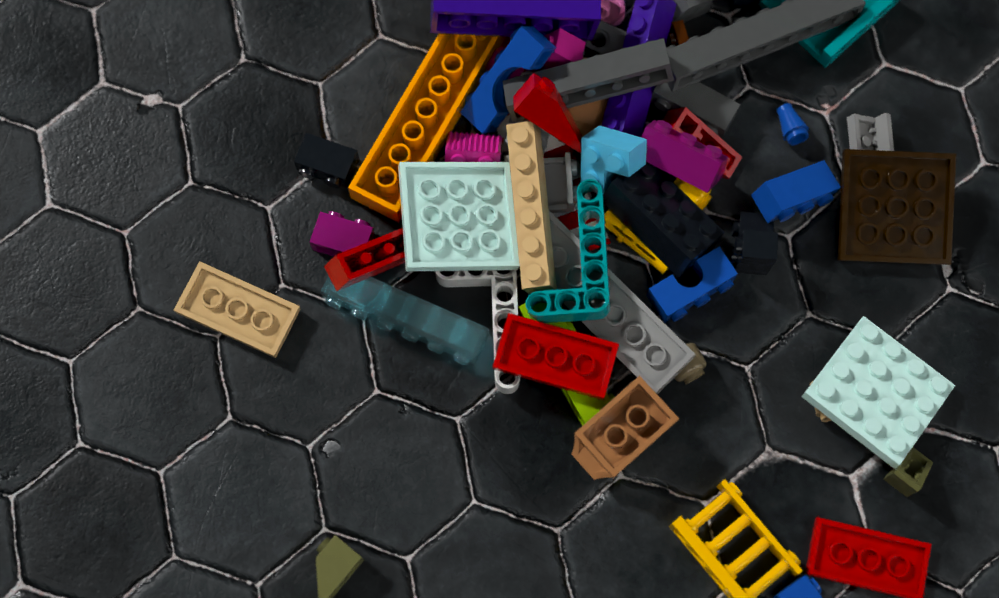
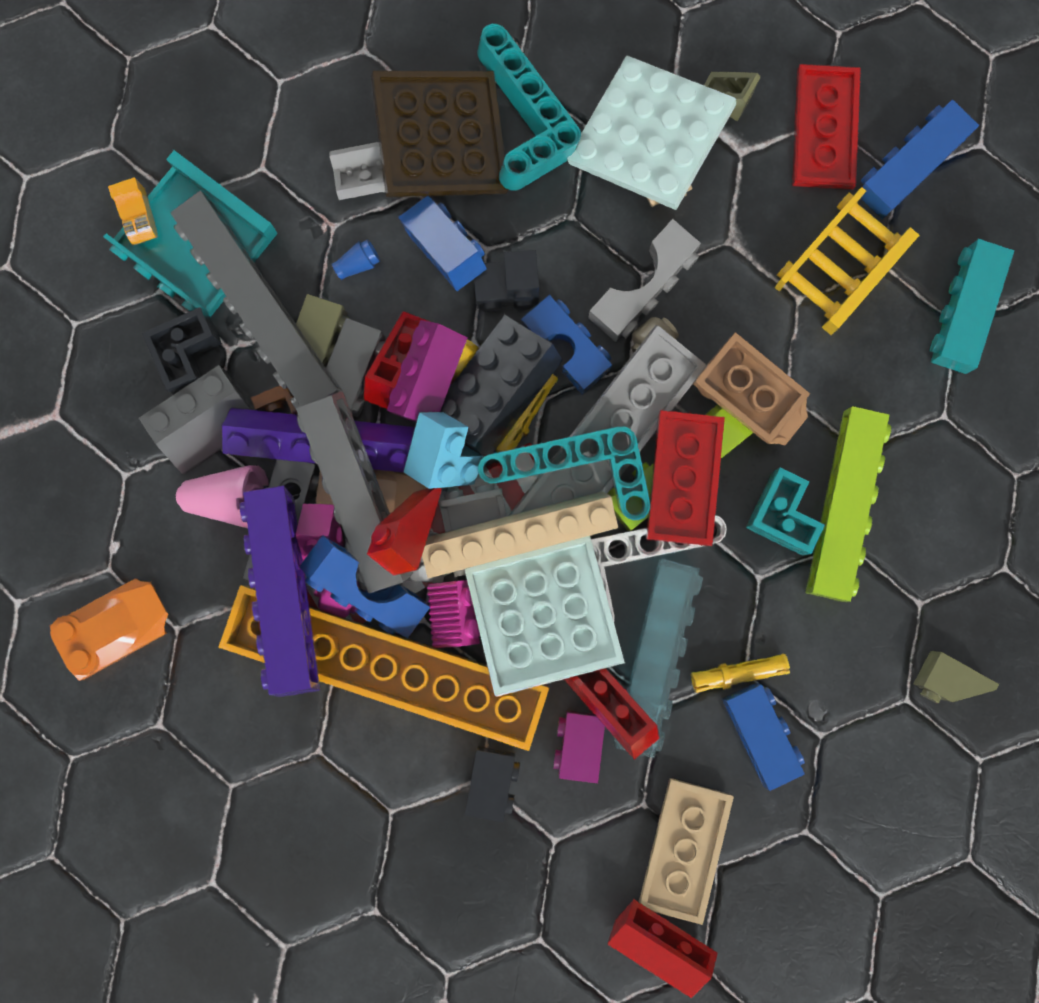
camera: 95 degrees left, 10 degrees up
(162, 272) = (662, 948): none -> red brick
(319, 392) = (764, 735): none -> blue brick
(377, 383) = (748, 671): none -> yellow pin
(507, 436) = (777, 516): none -> teal brick
(510, 505) = (848, 504): none -> lime brick
(737, 84) = (321, 325): none -> olive brick
(761, 390) = (619, 309): none -> light grey arch
(912, 292) = (531, 108): none -> teal beam

